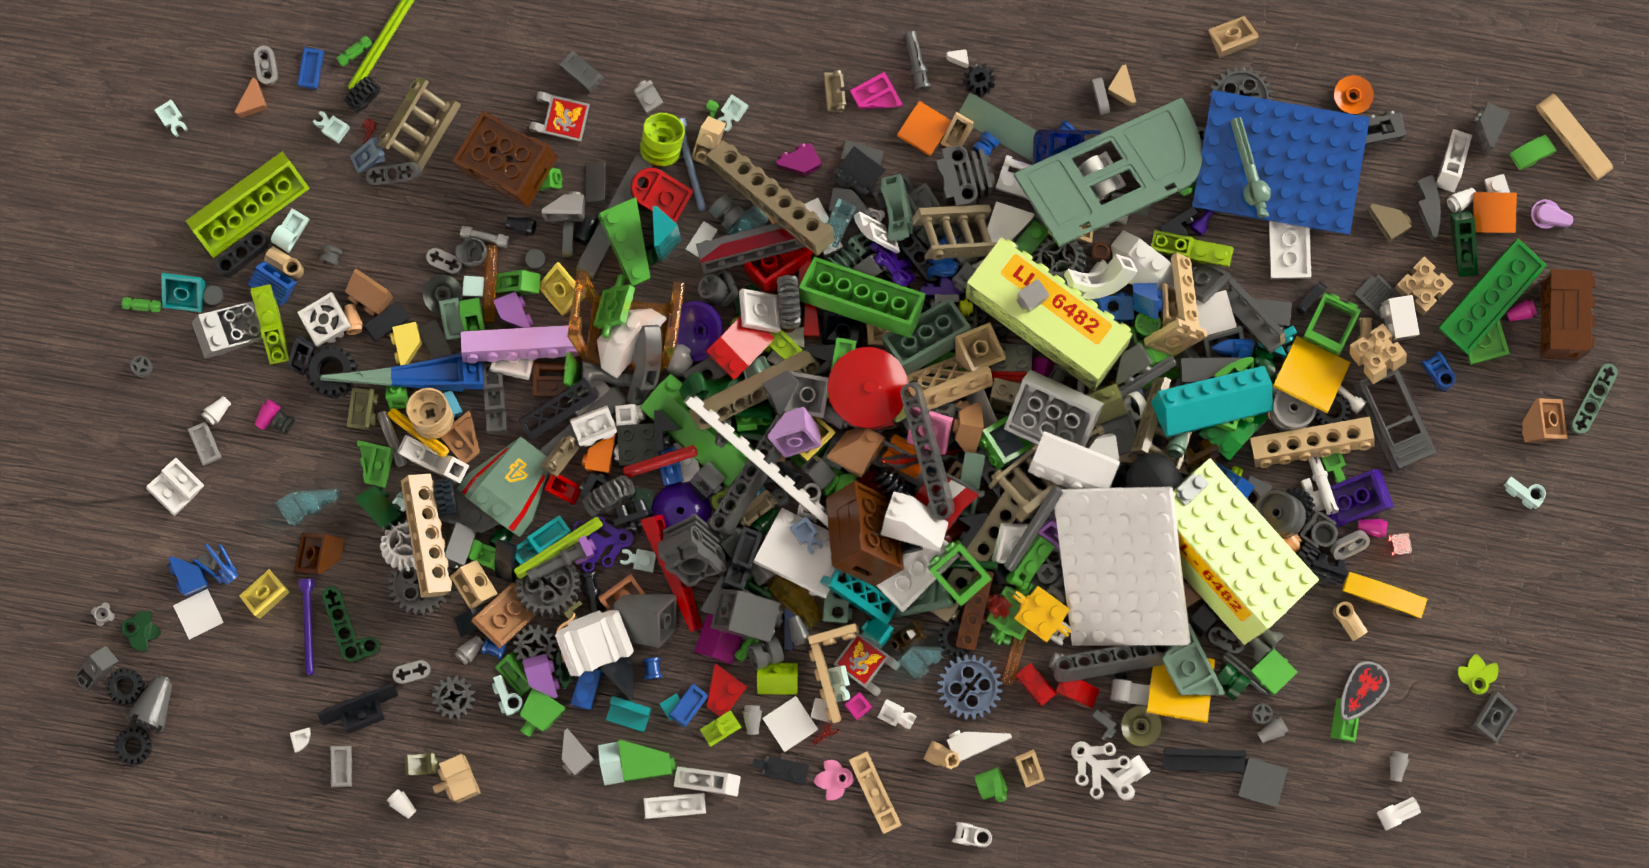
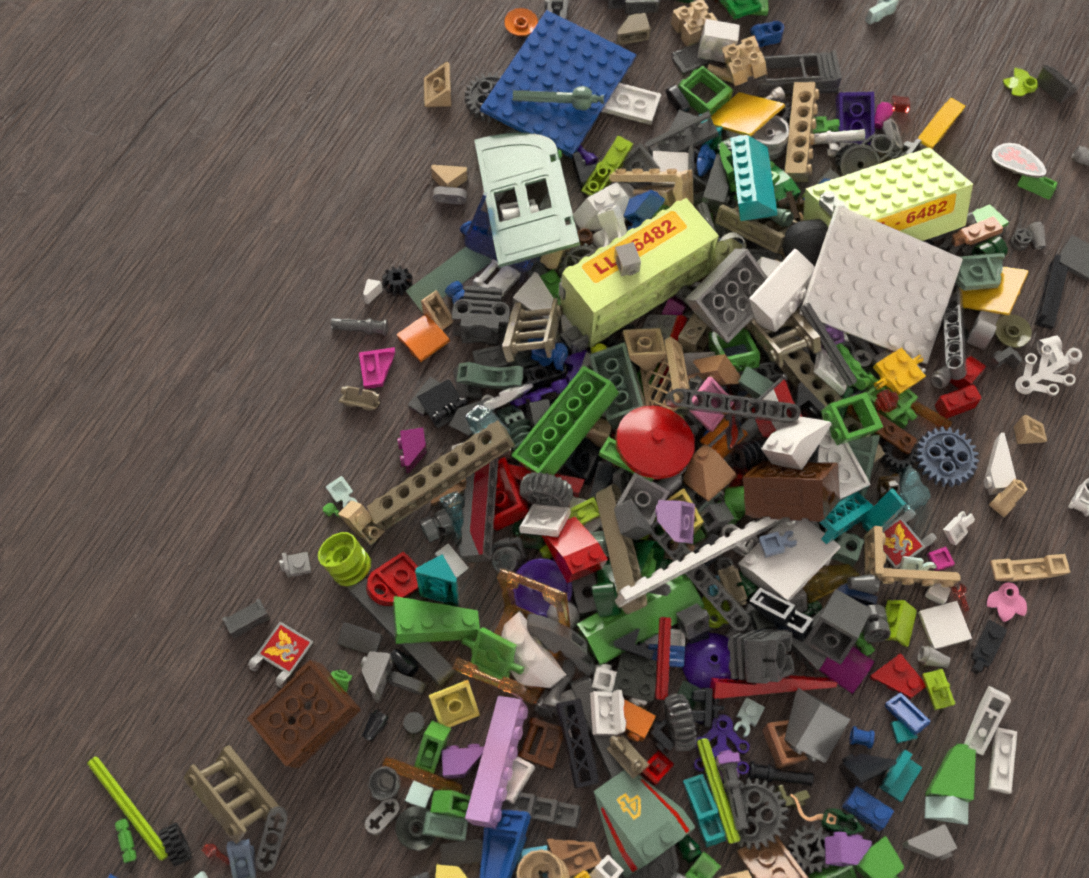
camera: 80 degrees left, 15 degrees down
(500, 240) = (383, 751): light grey bar -> none
(505, 560) = (716, 849): black slope -> none
(572, 371) = (543, 719): bright green piece -> none
(593, 641) = (828, 782): white slope -> none
(691, 171) = (392, 548): sand blue piece -> none
(992, 784) = (1043, 464): bright green piece -> none
(1247, 662) = (977, 232): none -> nougat hinge
(1351, 622) = (953, 153): tan piece -> none

